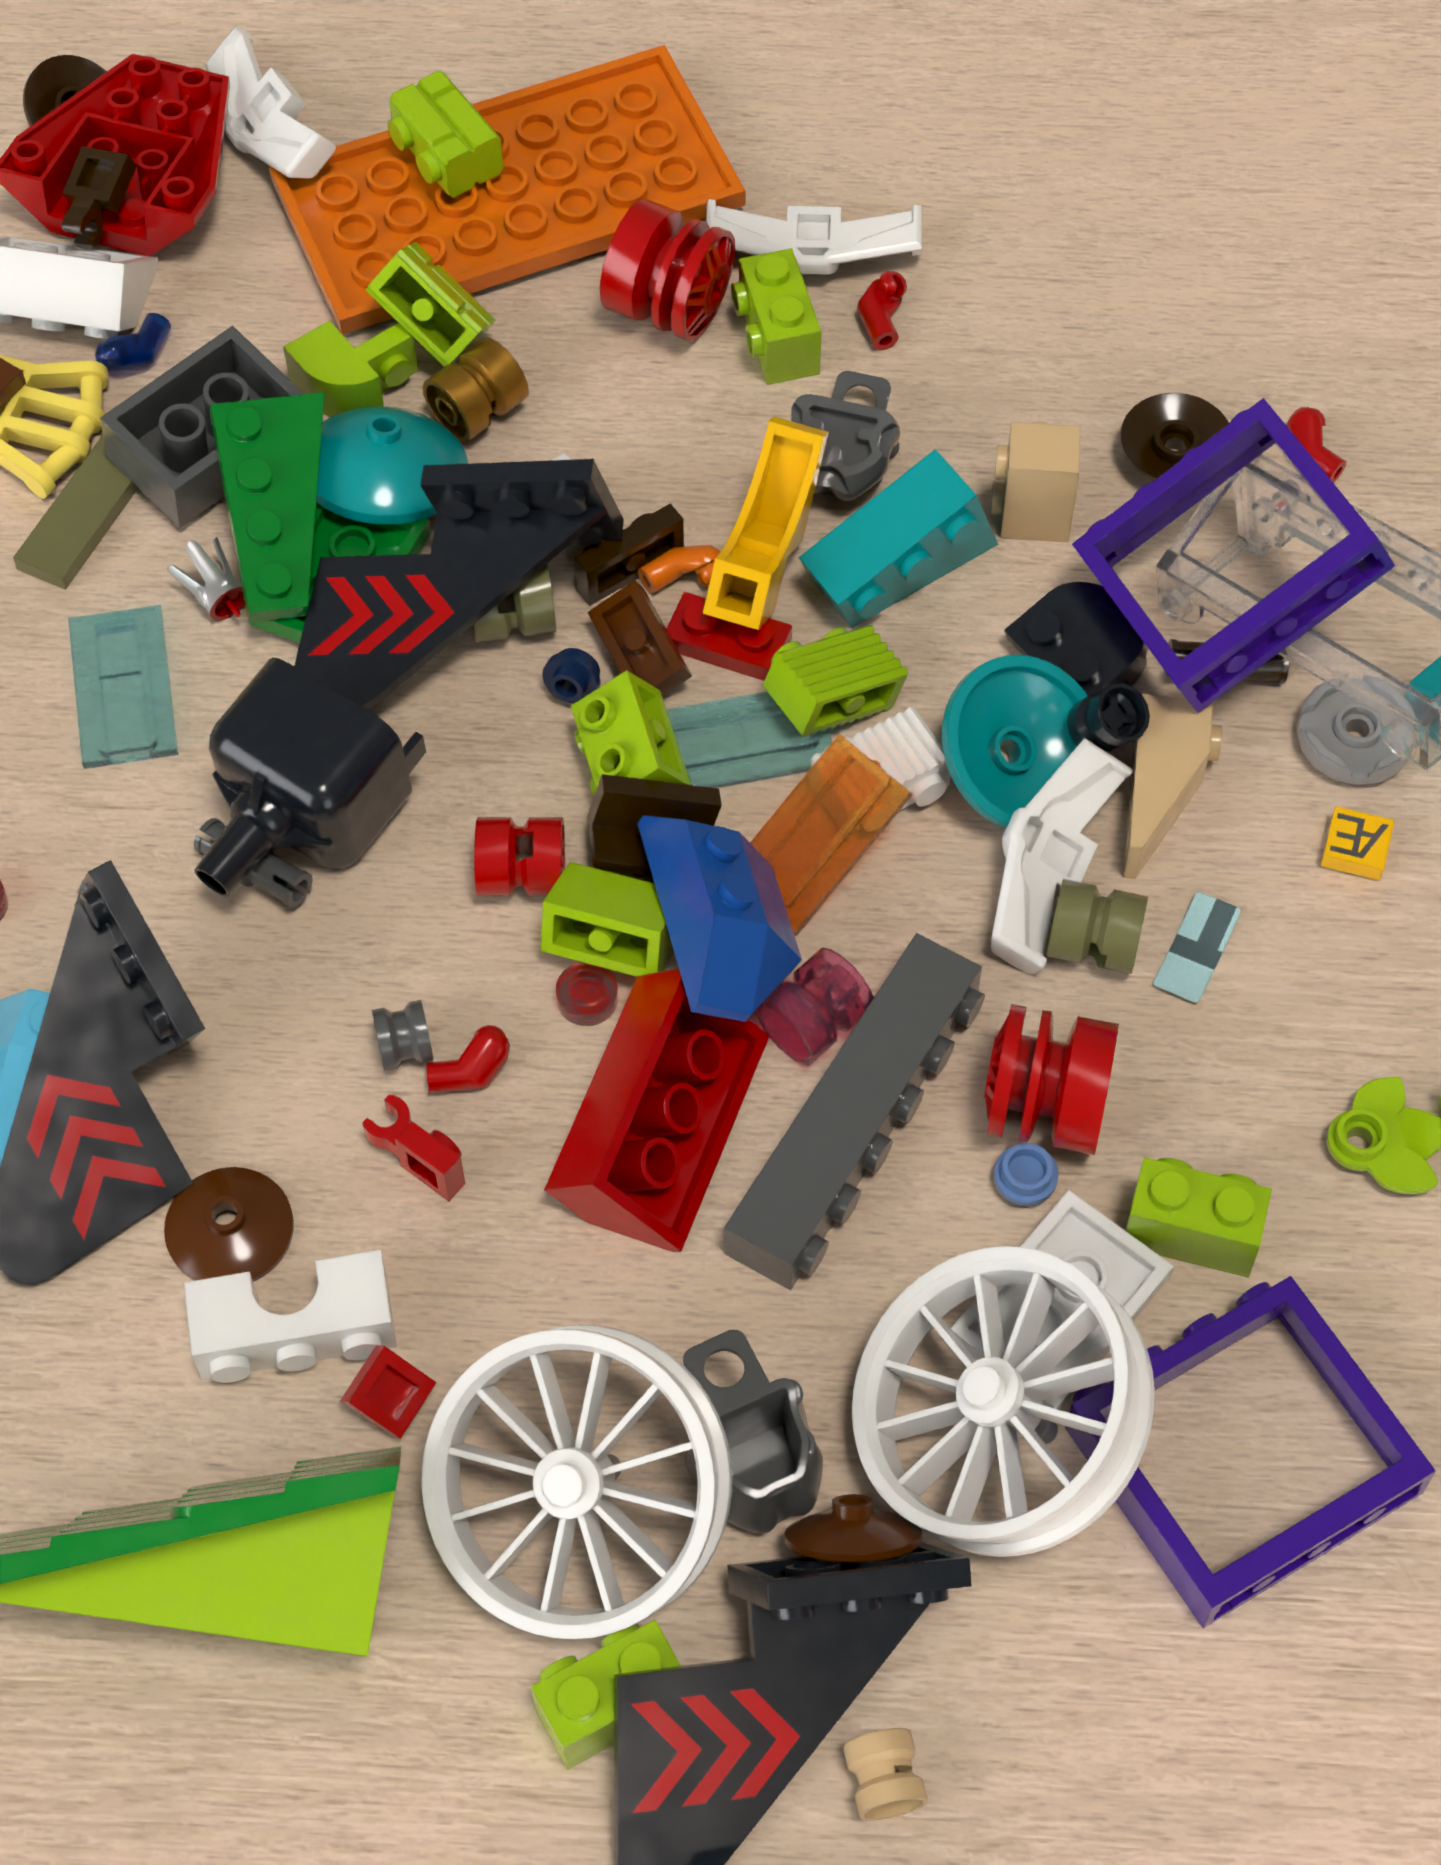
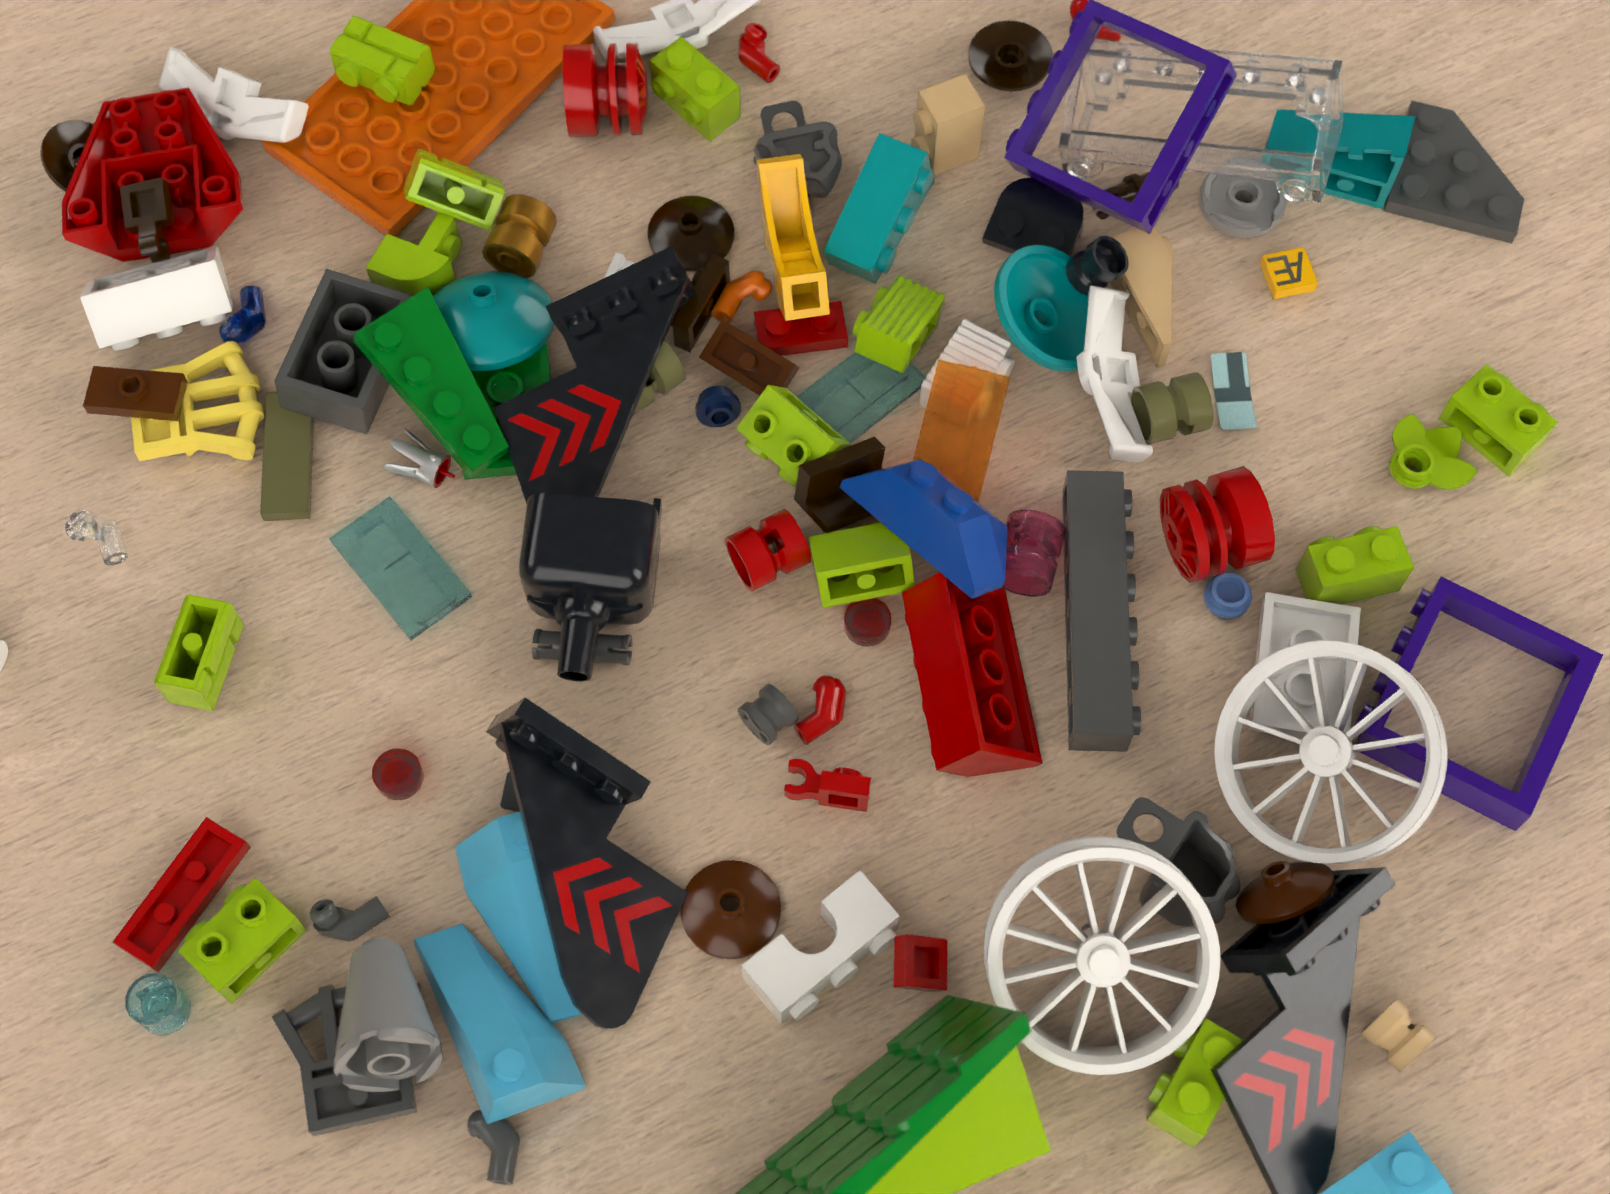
camera: 30 degrees left, 5 degrees up
(692, 488) = (692, 244): none -> dark brown dish

